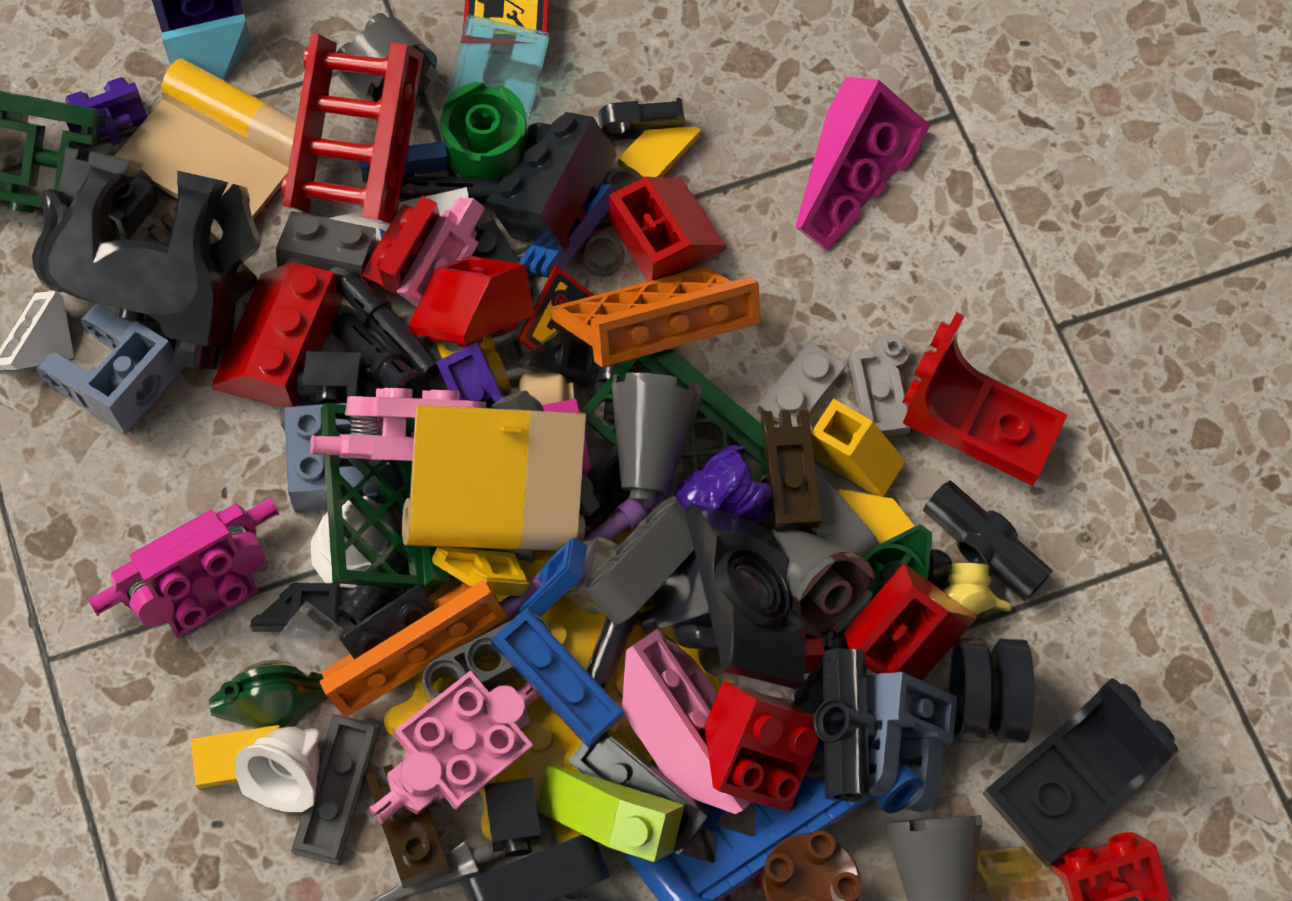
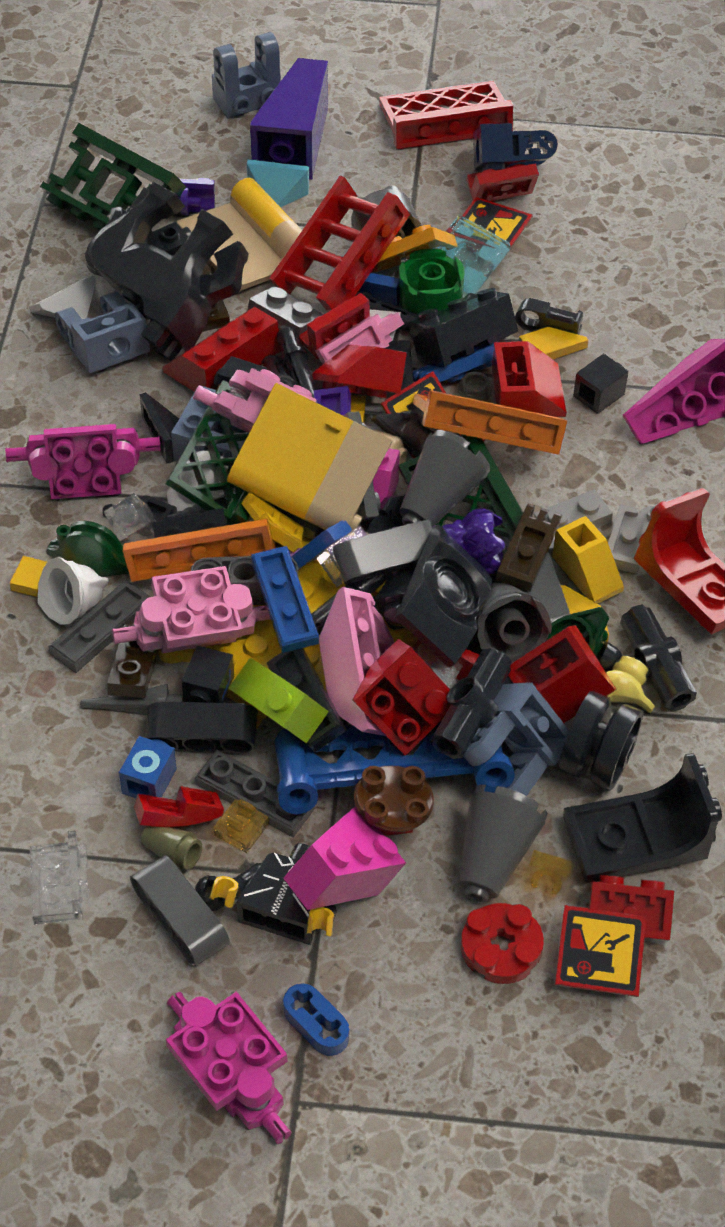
camera: 30 degrees right, 15 degrees down
(260, 472) = (159, 423): none -> black slope
(448, 81) = (422, 238): none -> light orange wing
(746, 188) = (600, 383): none -> black brick

